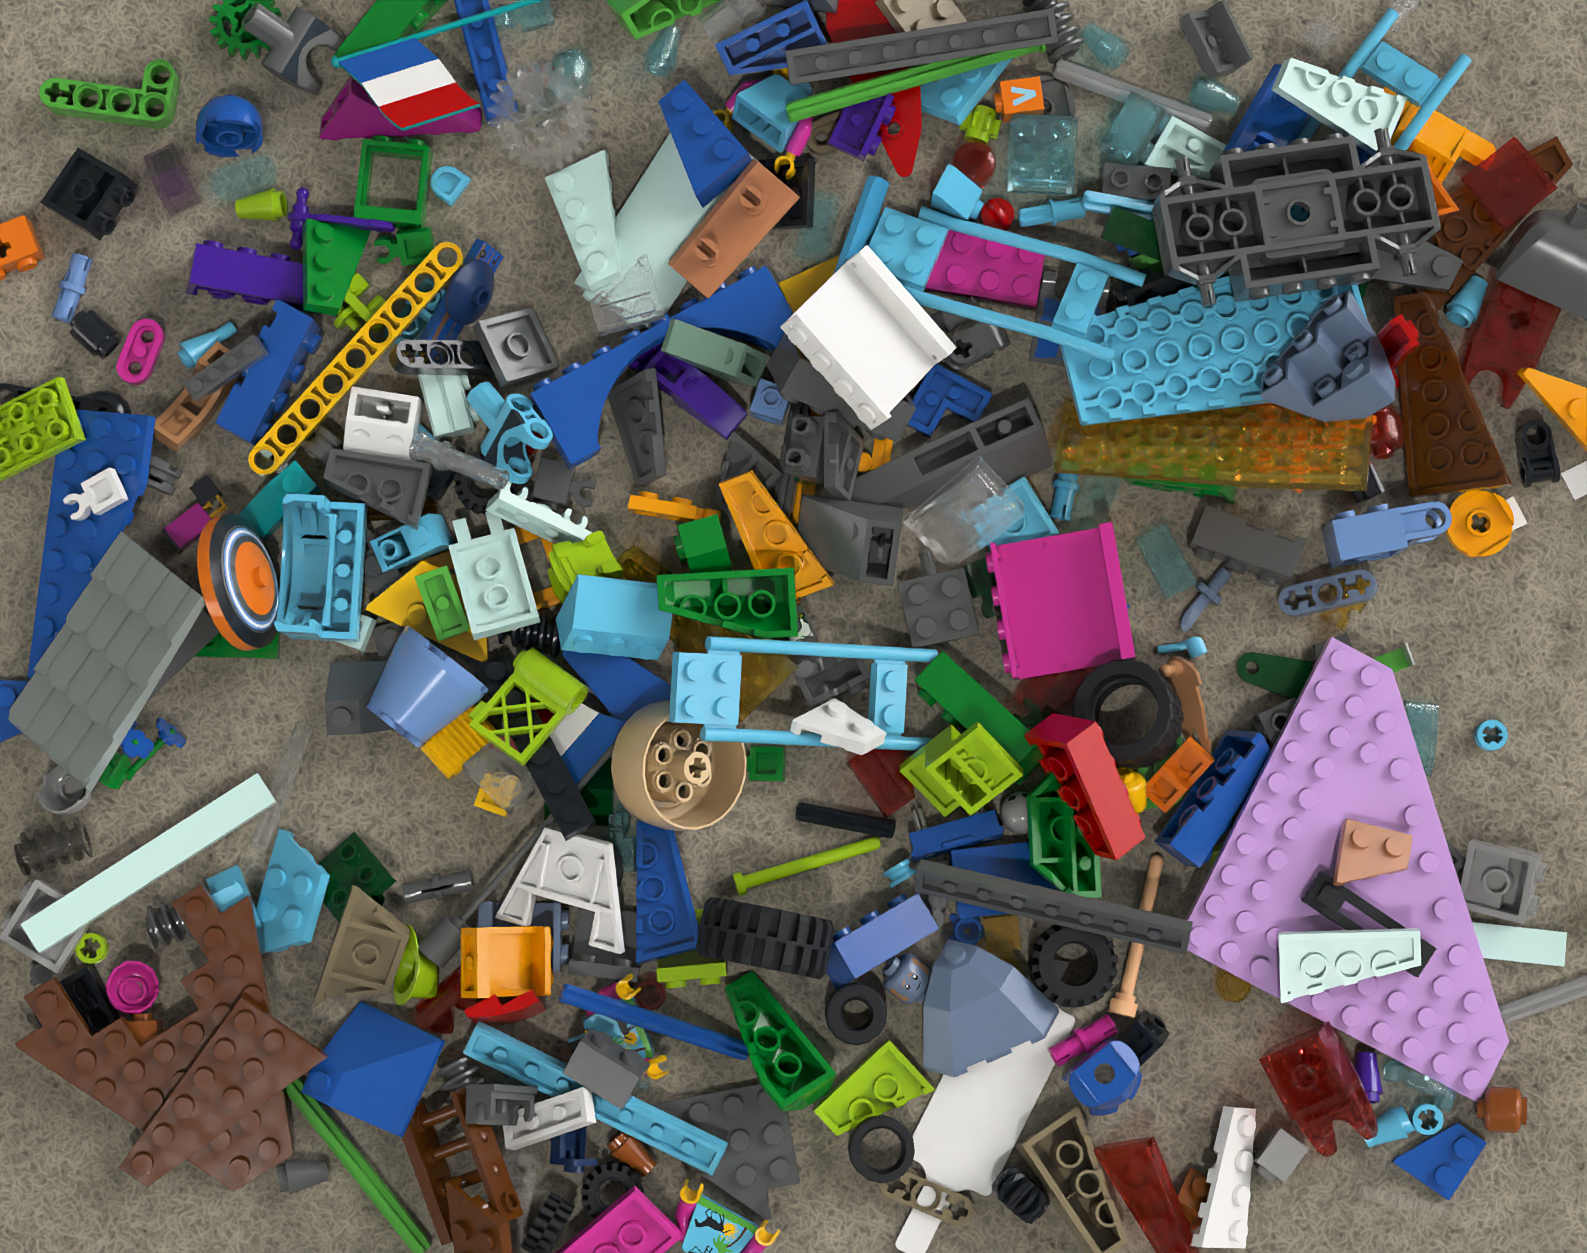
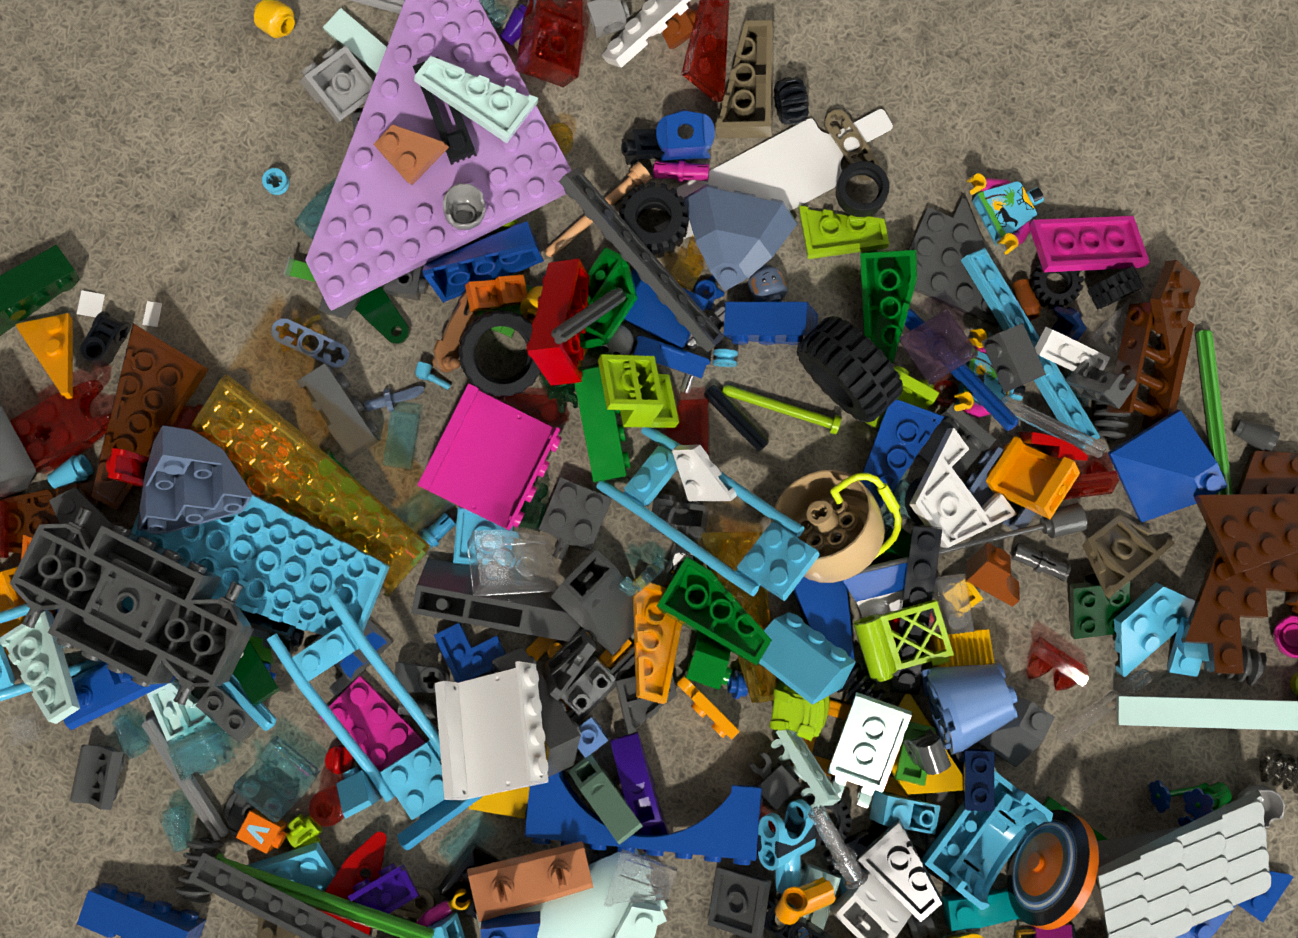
camera: 145 degrees left, 0 degrees up
(365, 620) = (978, 779): none -> dark blue bracket
(367, 797) = (1047, 657): none -> clear red tile
(416, 973) = (1099, 512): lime piece -> none
(433, 607) = (928, 753): none -> dark grey piece
(457, 391) = (805, 899): none -> light orange piece
(481, 835) = (991, 572): none -> dark orange arch
(520, 1024) = (1055, 427): none -> clear axle
(639, 425) = (689, 788): dark grey wing -> none
(639, 834) = (887, 497): none -> neon yellow piece
(660, 552) = (737, 685): none -> blue plate
(690, 1029) = (938, 346): none -> clear purple hinge
(766, 764) = (765, 488): green plate -> none
(822, 600) = (647, 576): none -> clear light blue arm
(876, 1019) = (821, 270): black tyre -> none
(1051, 212) = (300, 734): medium azure axle -> none
(1062, 803) = (588, 315): none -> dark grey axle
(1269, 829) = (464, 206): none -> light grey hair
(1381, 532) = (245, 356): medium blue brick -> none
(1498, 526) = (167, 309): light orange plate -> none

